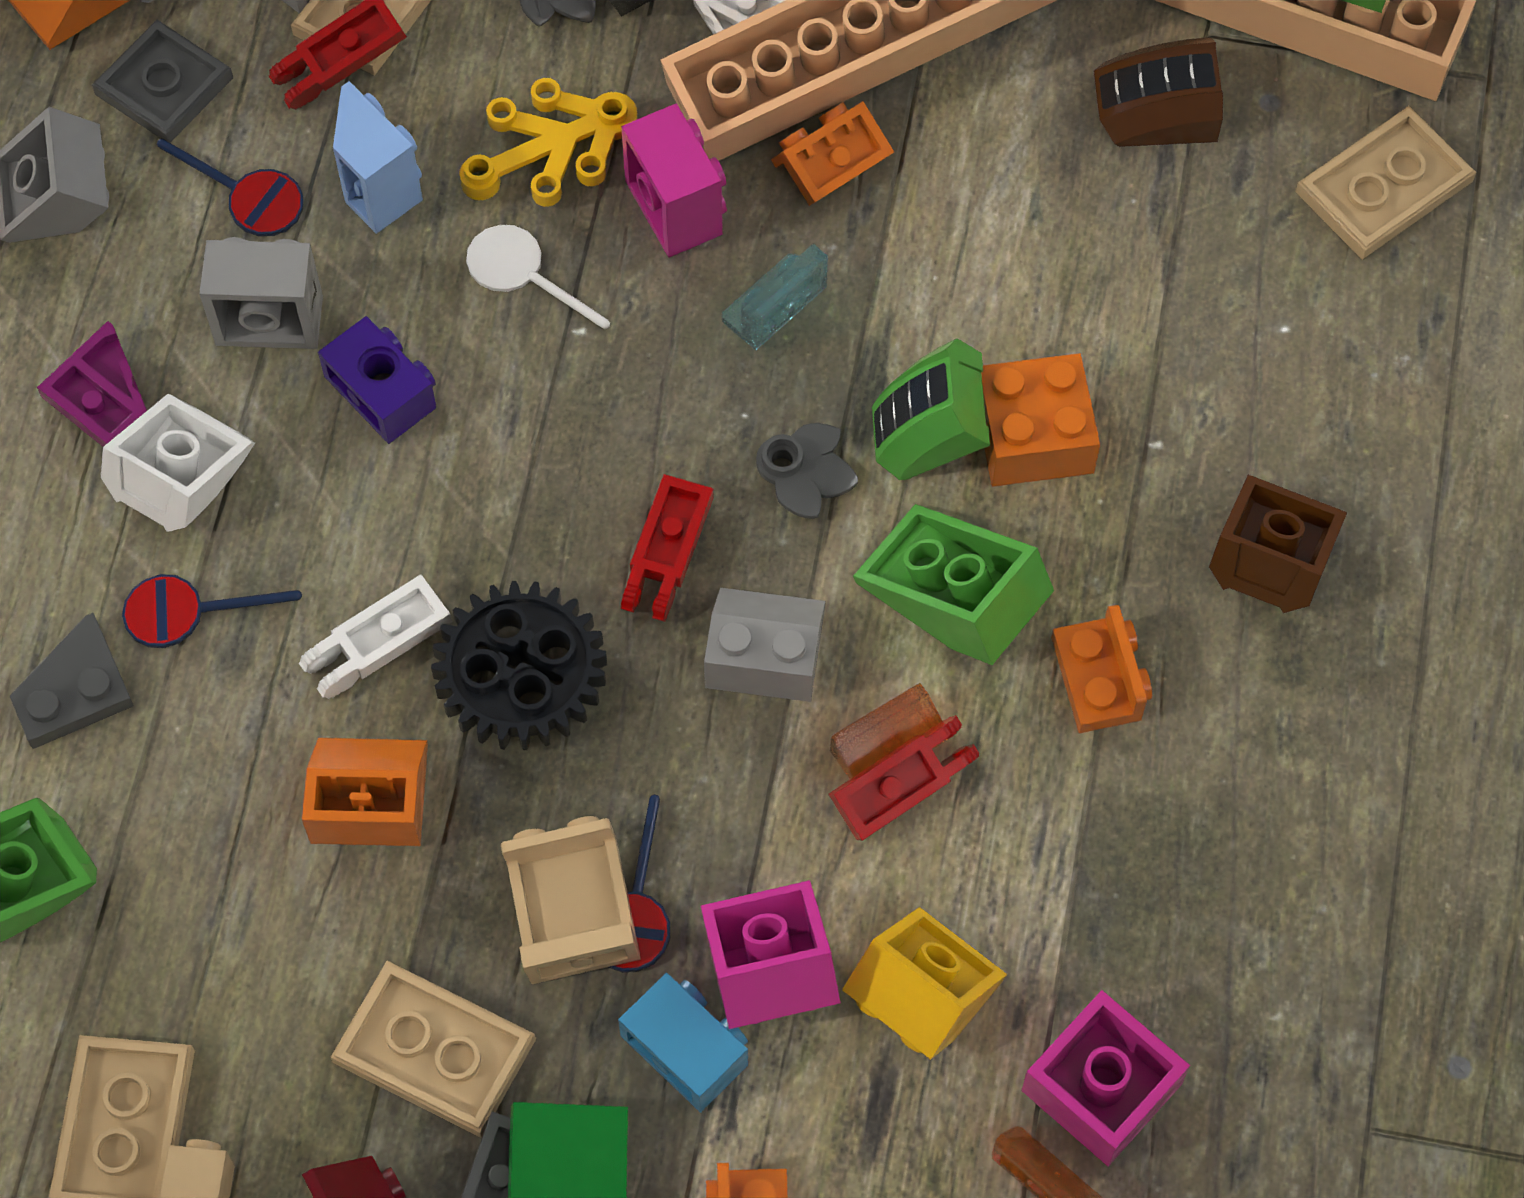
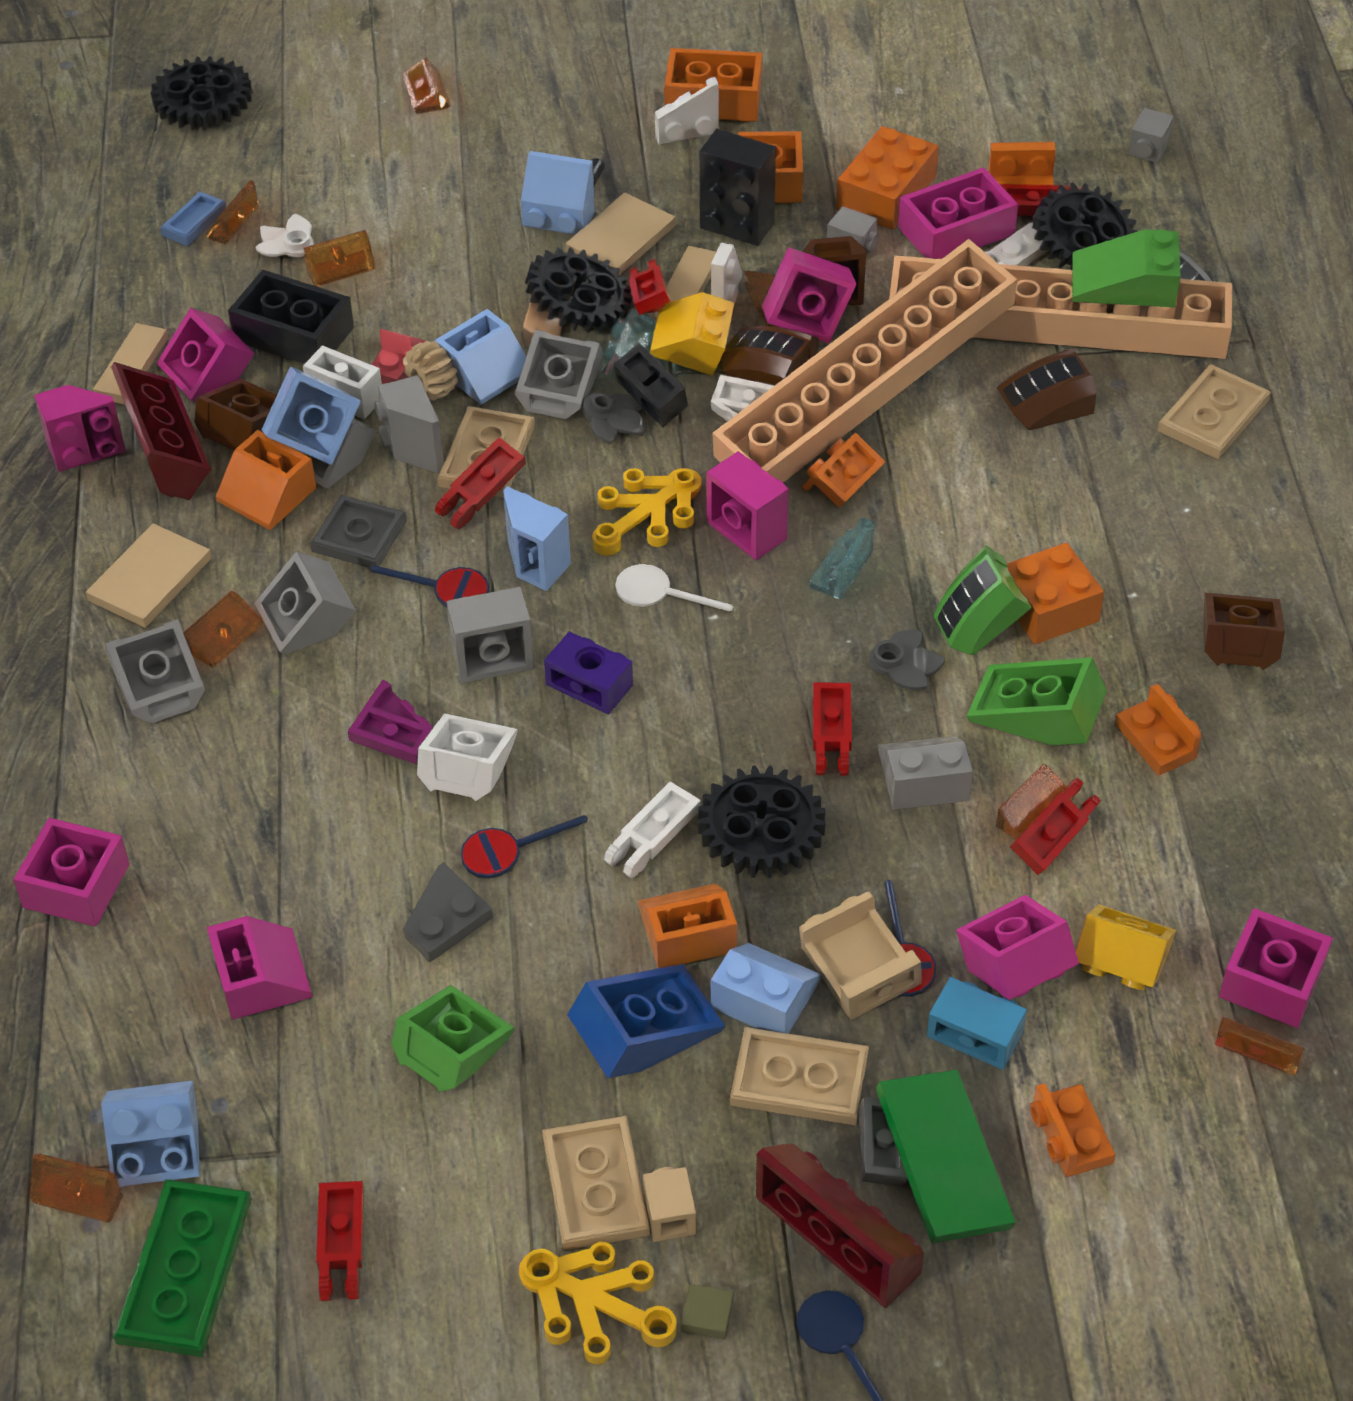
camera: 15 degrees left, 15 degrees down
(262, 913) = (642, 1018): none -> blue slope
(432, 908) = (762, 988): none -> light blue slope

